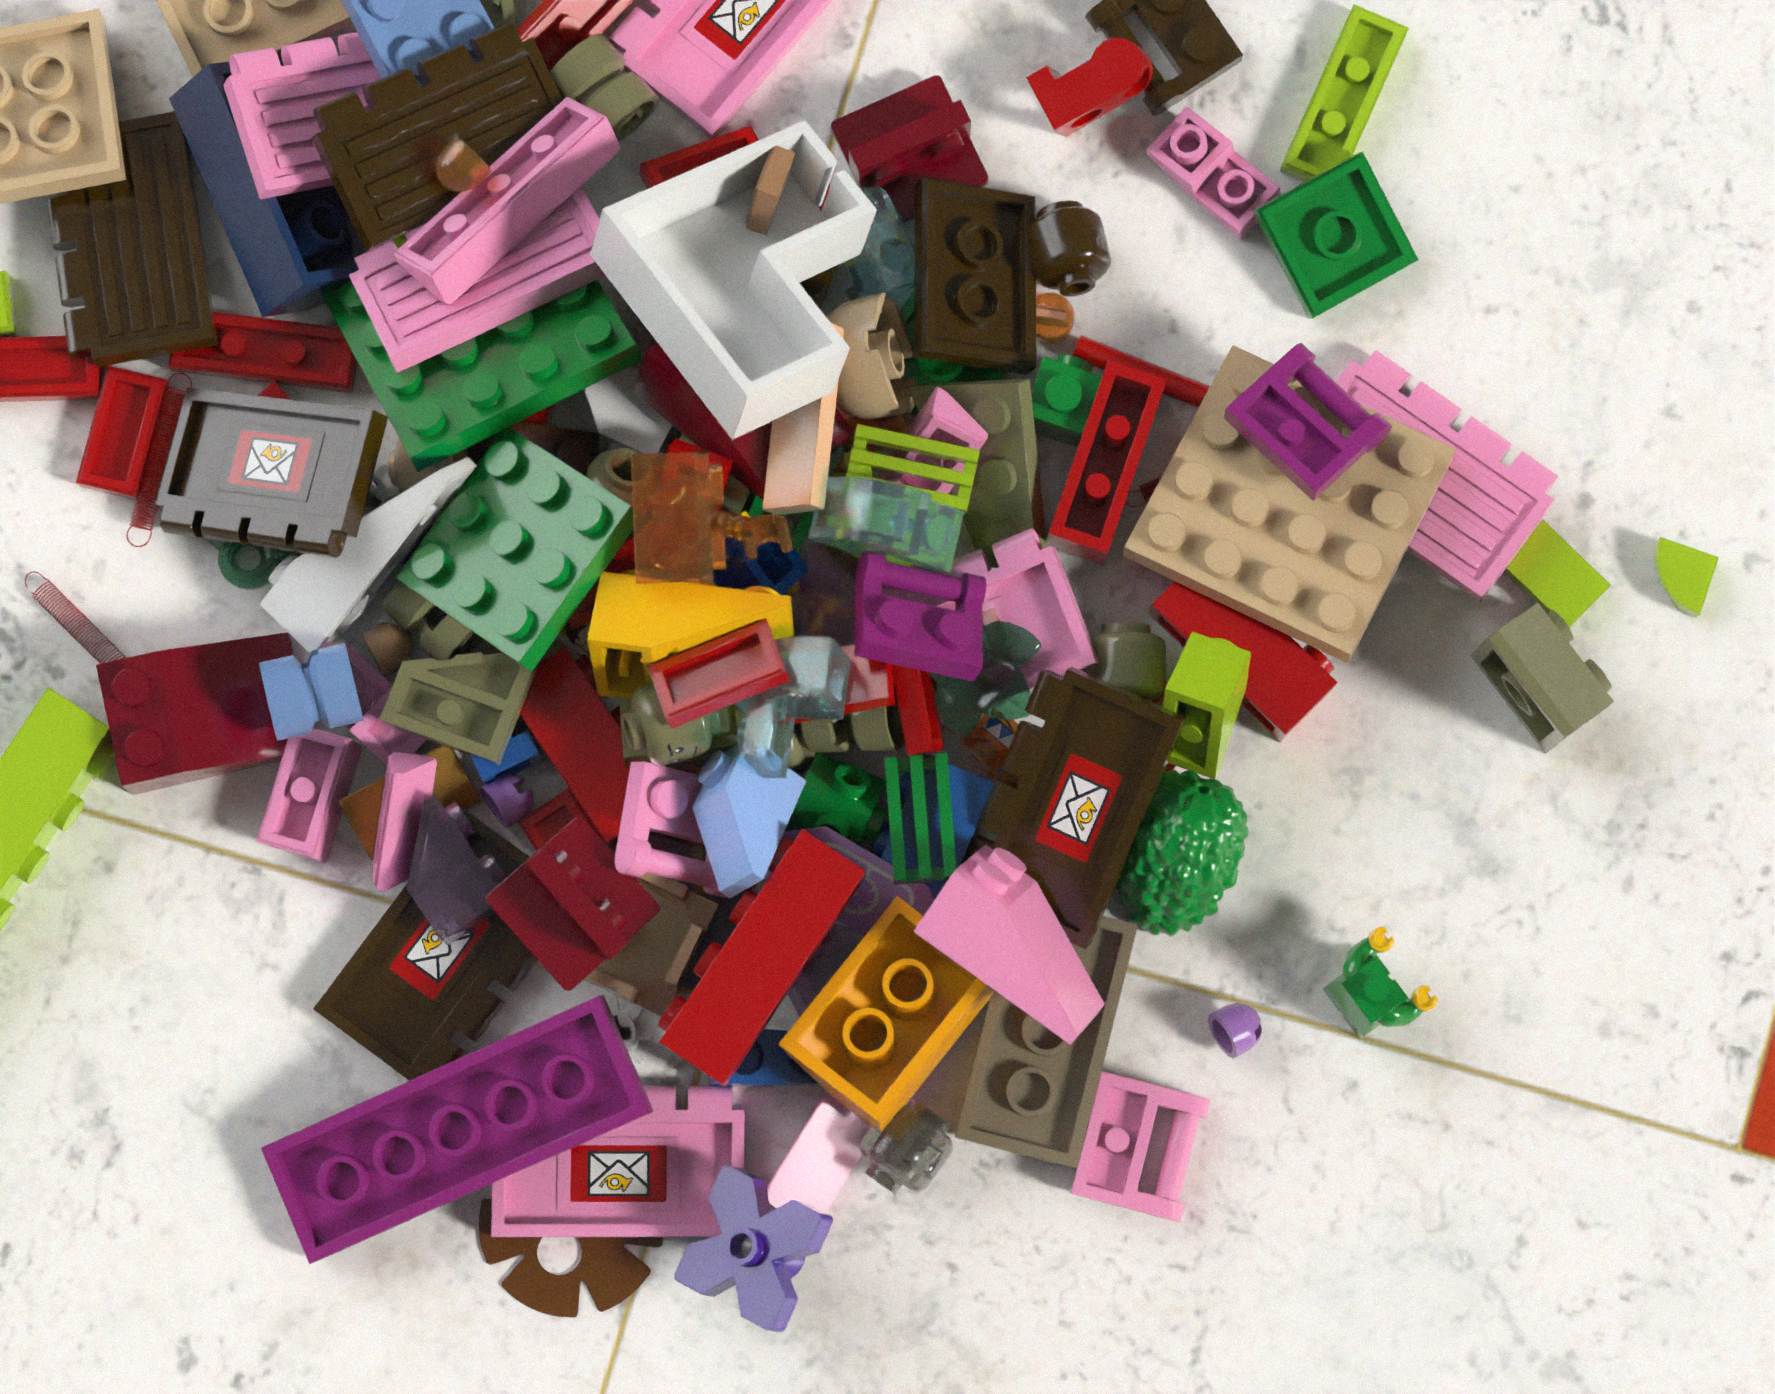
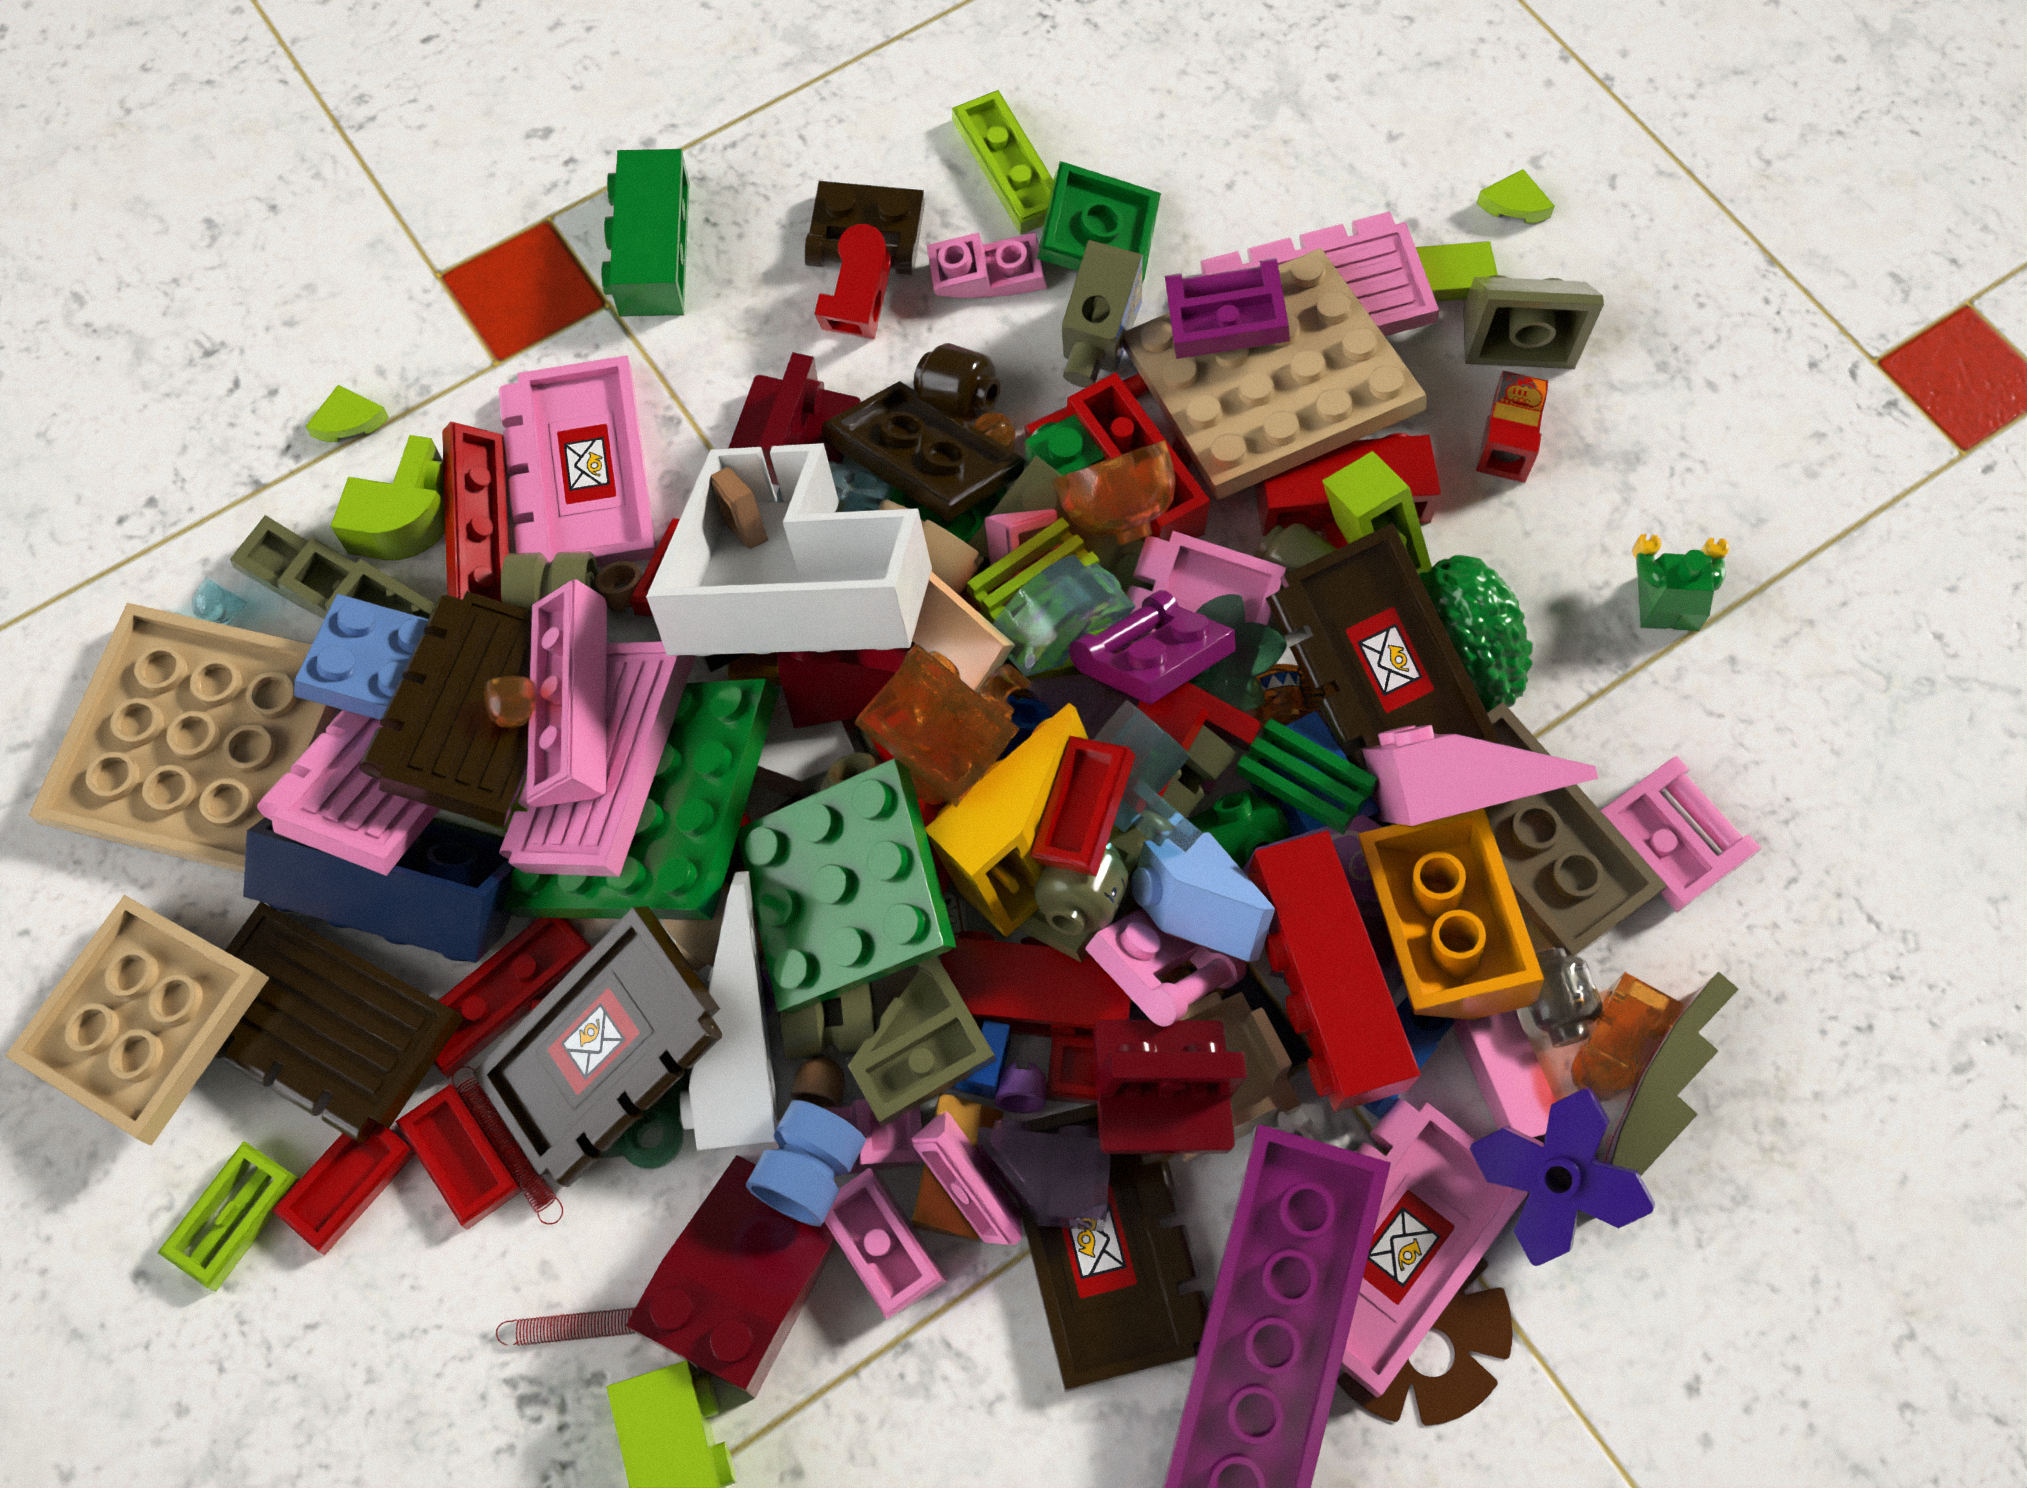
camera: 50 degrees left, 15 degrees down
(644, 132) = (615, 575): none -> medium nougat hinge
(868, 1284) = (1651, 1110): none -> olive slope
(891, 1220) = (1610, 1056): none -> clear orange leg
(1037, 478) = (1120, 493): none -> clear orange cylinder
(1235, 1028) = (1633, 700): medium lavender hinge -> none
(1253, 313) = (1100, 311): none -> olive torso
(1427, 743) = (1513, 426): none -> red leg

